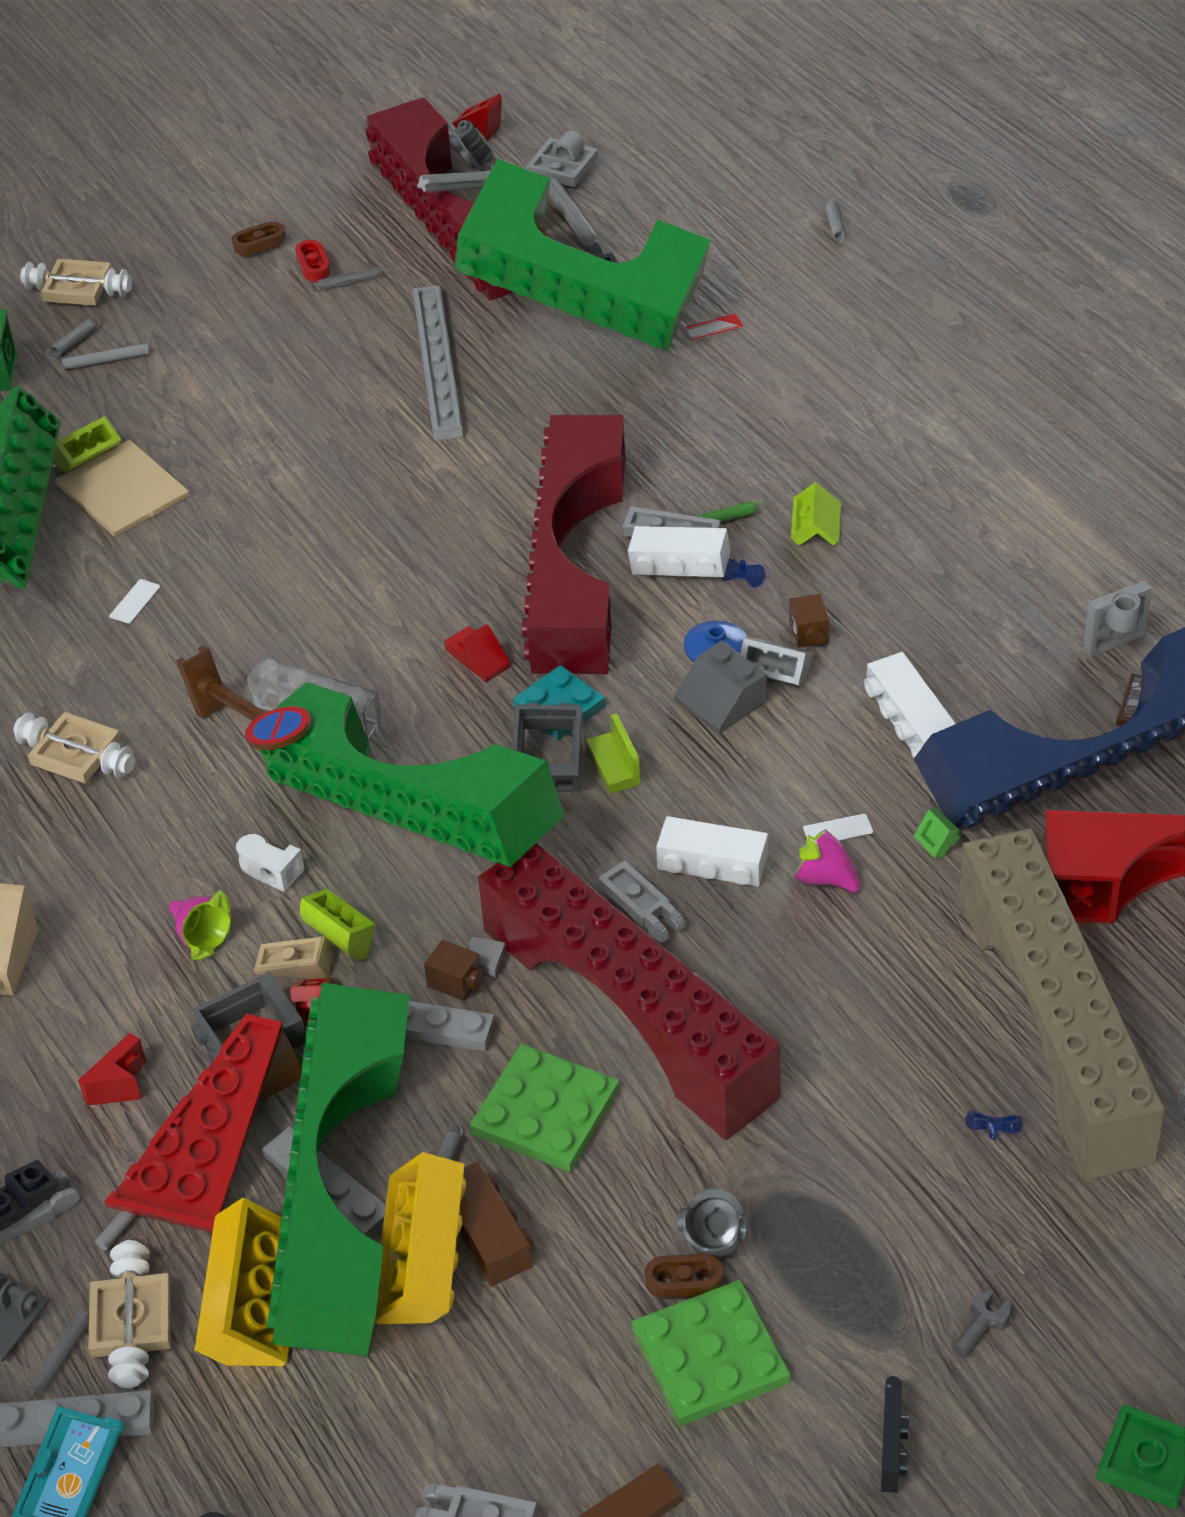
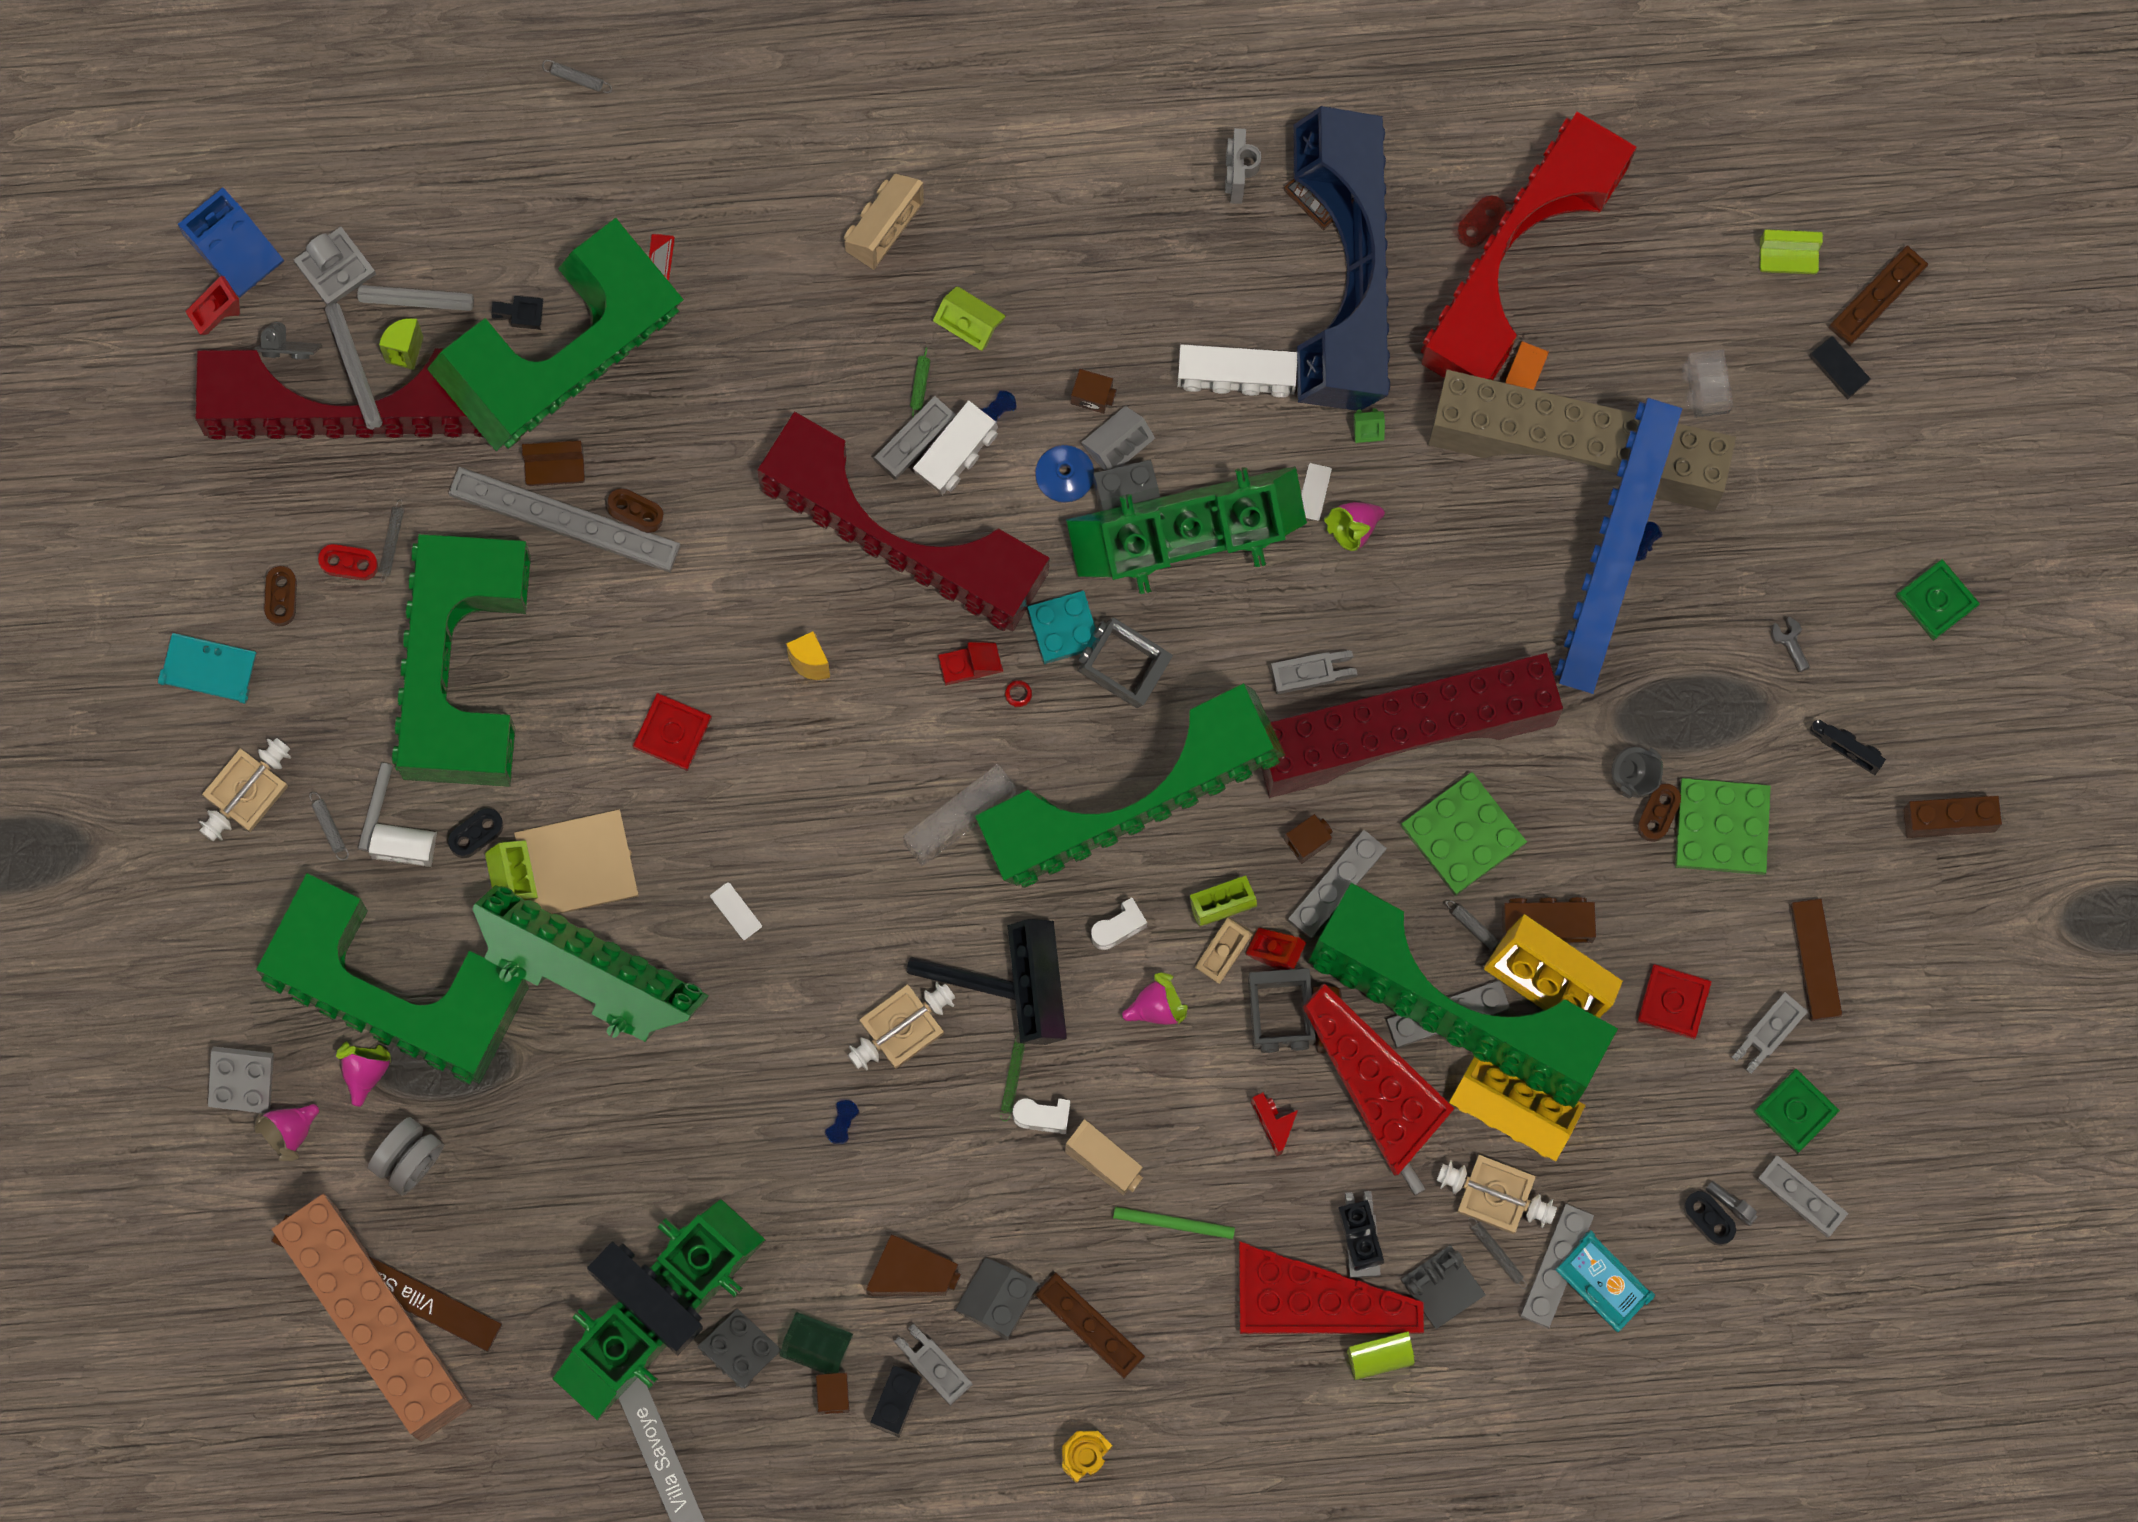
camera: 70 degrees left, 30 degrees up
(29, 872) = (1042, 1117): none -> white leg
(67, 847) = (1014, 1078): none -> bright green piece
(78, 379) = (402, 845): none -> white brick
(120, 415) = (473, 831): none -> black plate
(150, 776) = (961, 978): none -> black axle
(170, 818) = (1037, 982): none -> black brick
(172, 228) = (217, 671): none -> teal door
(266, 731) = (1026, 862): reddish brown piece -> none
(282, 494) = (672, 732): none -> red tile
(315, 306) = (448, 584): none -> green arch
(405, 532) = (808, 657): none -> yellow brick
(463, 1398) = (1674, 1001): none -> red tile
(469, 691) = (1018, 683): none -> red piece
(472, 390) = (636, 510): none -> reddish brown plate
(486, 333) = (553, 463): none -> reddish brown panel
(490, 954) = (1299, 807): light grey tile -> none
(539, 101) = (230, 242): none -> blue slope
(615, 757) = (1154, 615): lime panel -> none
(712, 851) = (1296, 596): white brick -> none
(729, 735) = (1188, 525): none -> green piece
(859, 426) = (884, 219): none -> tan slope
(956, 1061) = (1619, 545): none -> blue brick
(1108, 937) = (1527, 366): none -> orange slope

